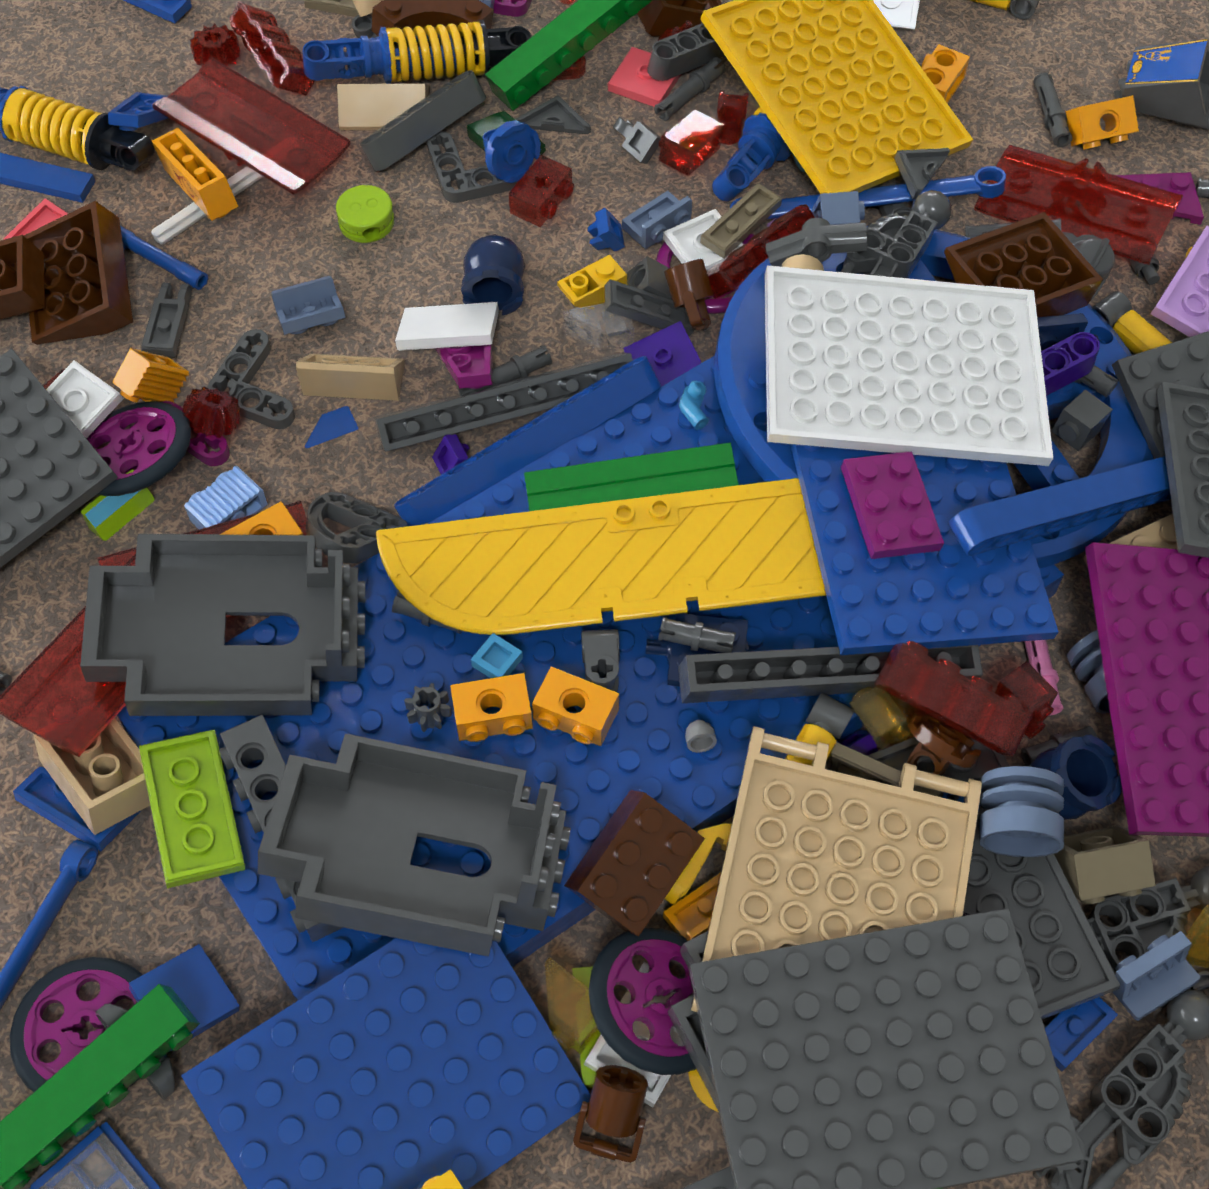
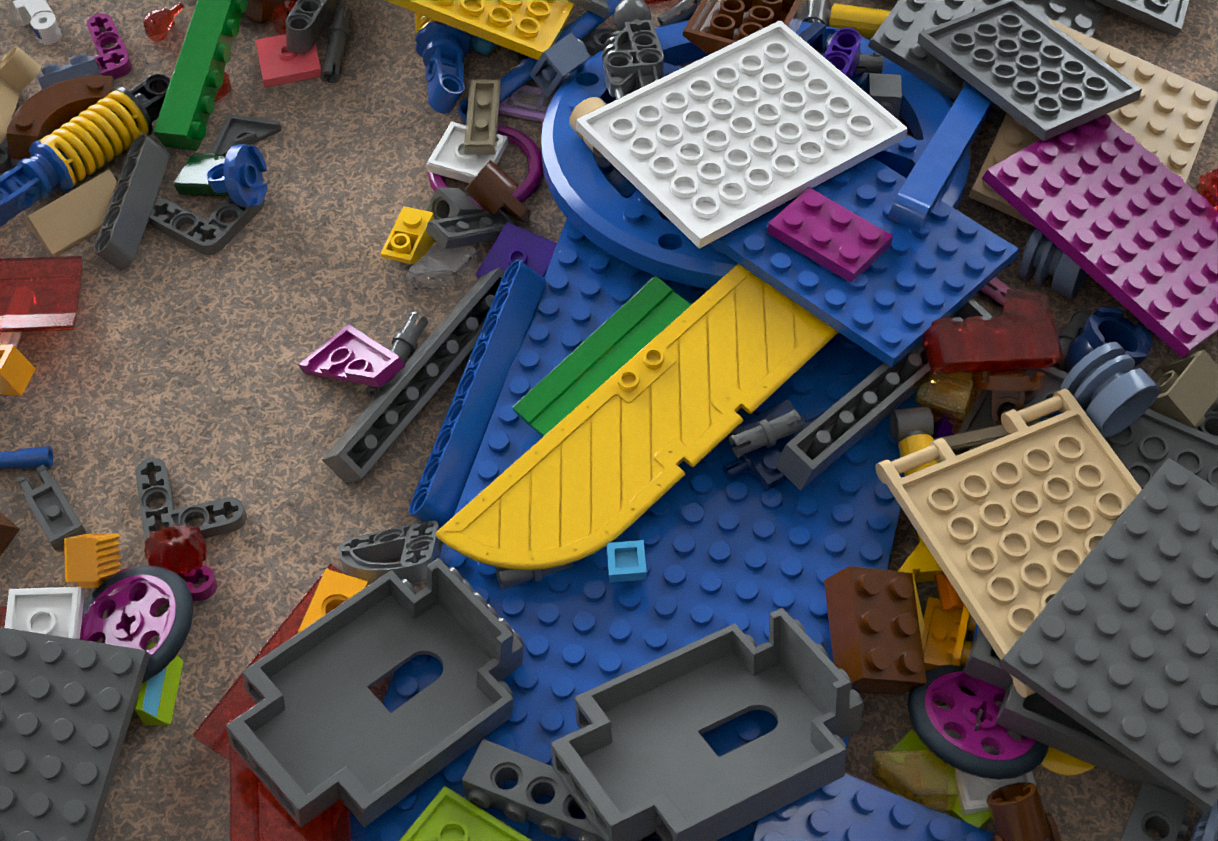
camera: 35 degrees left, 5 degrees down
(227, 499) = (257, 613): light blue brick -> none
(307, 305) = (173, 412): sand blue bracket -> none
(332, 426) = (285, 494): blue sticker -> none
(350, 376) = (267, 442): tan slope -> none
(365, 213) = (149, 308): lime head -> none
(437, 706) = (606, 638): dark grey gear -> none
(447, 326) = (315, 348): white tile -> none
(450, 453) = (415, 447): dark purple tile -> none
(494, 273) = (318, 283): dark blue tile -> none
(504, 692) = (662, 582): light orange brick -> none
(541, 191) = (289, 196): clear red brick -> none
(565, 690) = (731, 538): light orange brick -> none
(601, 657) = (706, 507): dark grey piece -> none
(606, 231) = (376, 192): blue tile -> none
(639, 140) = (333, 107): plate -> none
(655, 217) = (408, 158): sand blue bracket -> none
(691, 142) = (380, 84): clear red brick -> none
(691, 402) = (585, 274): dark azure arm -> none
(700, 736) = (831, 507): light grey hinge -> none
(731, 272) = (524, 126): clear red brick -> none
(732, 113) = (391, 46): clear red piece -> none
(818, 240) = (582, 83): dark grey piece -> none

